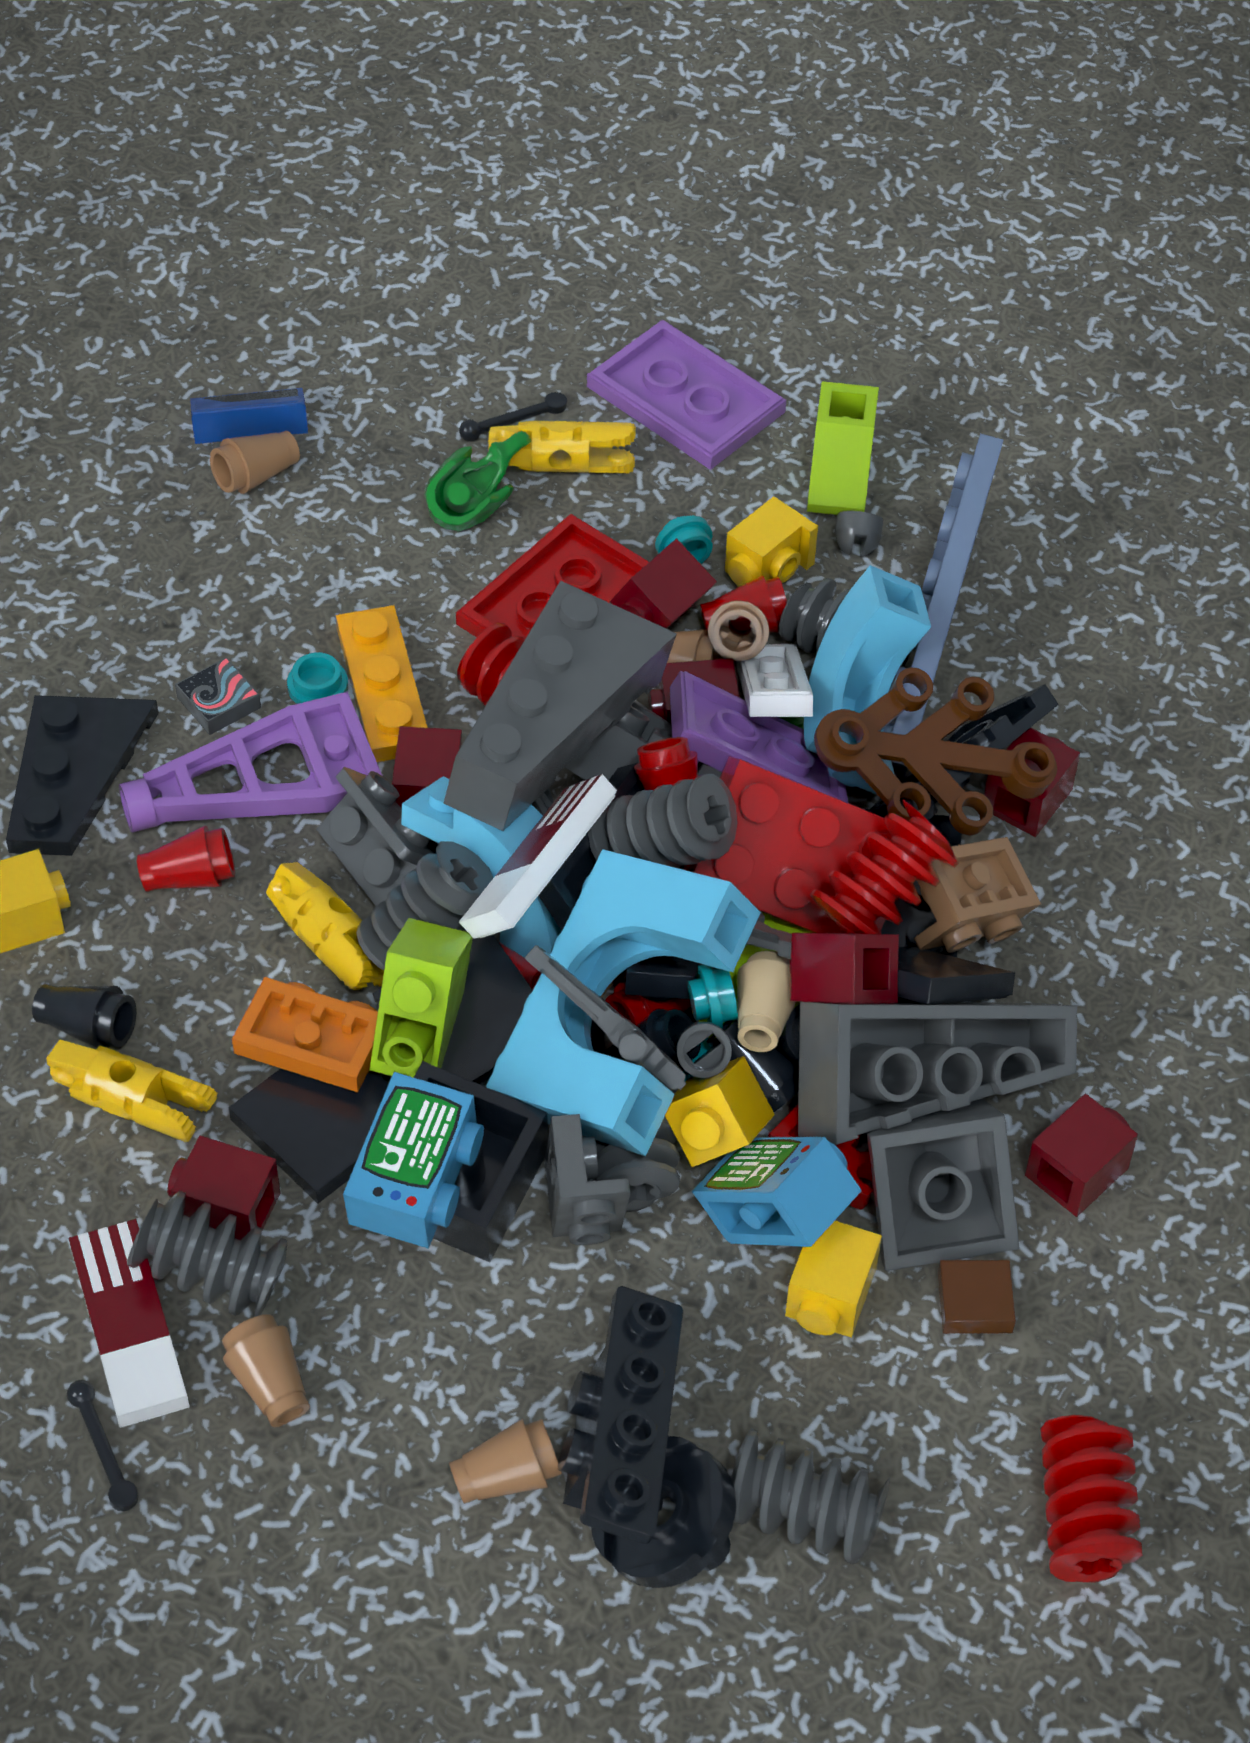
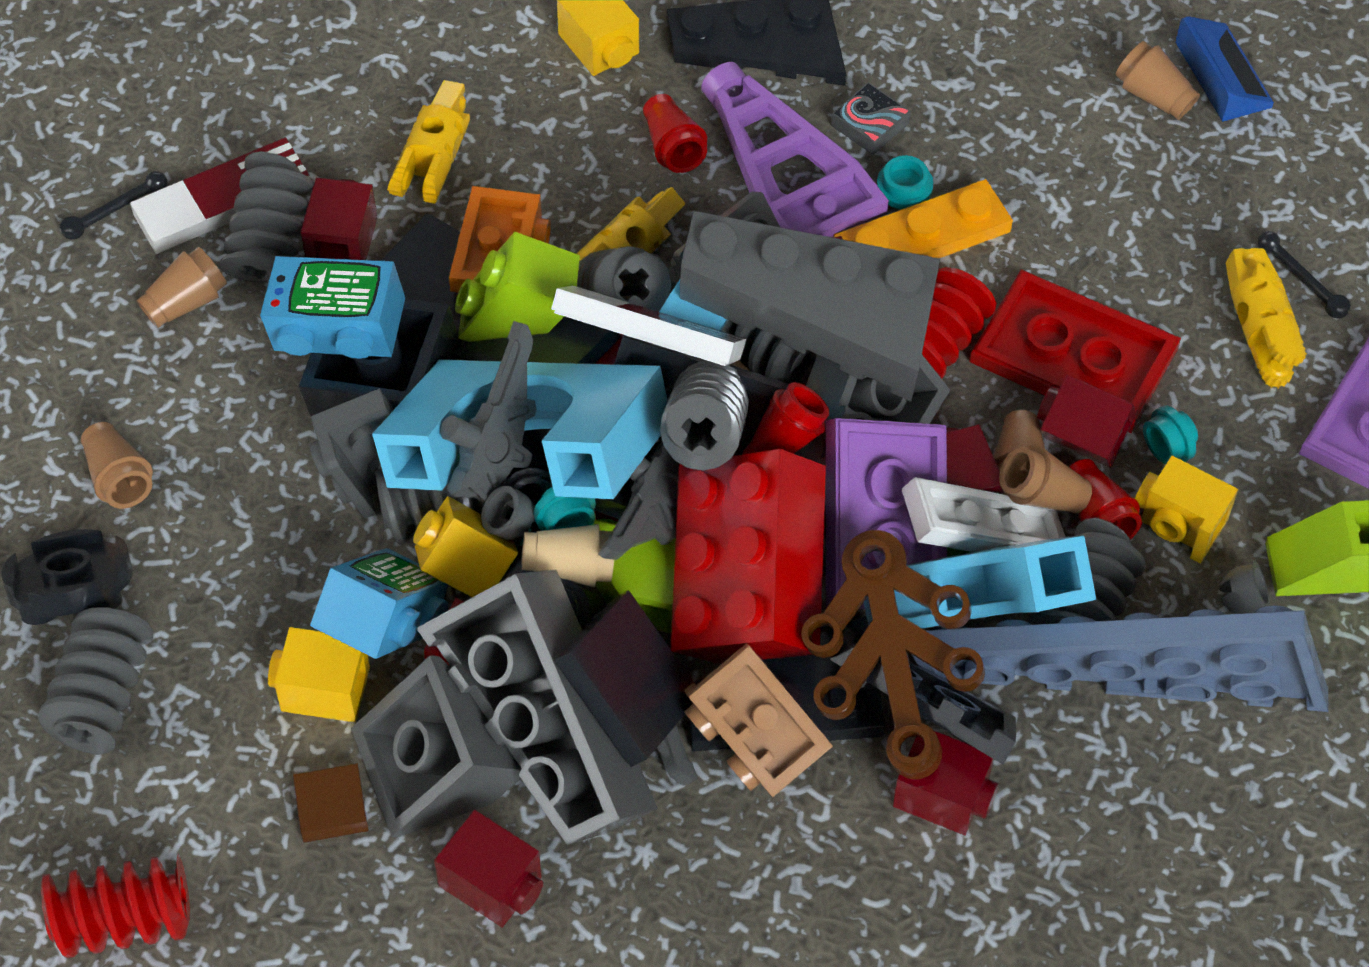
camera: 80 degrees right, 5 degrees up
(87, 1013) = (500, 104): black cone -> none
(466, 491) = (1172, 245): green piece -> none
(624, 1418) = (138, 522): black bracket -> none
(844, 968) = (583, 588): dark red brick -> none
(887, 874) = (700, 608): red piece -> none

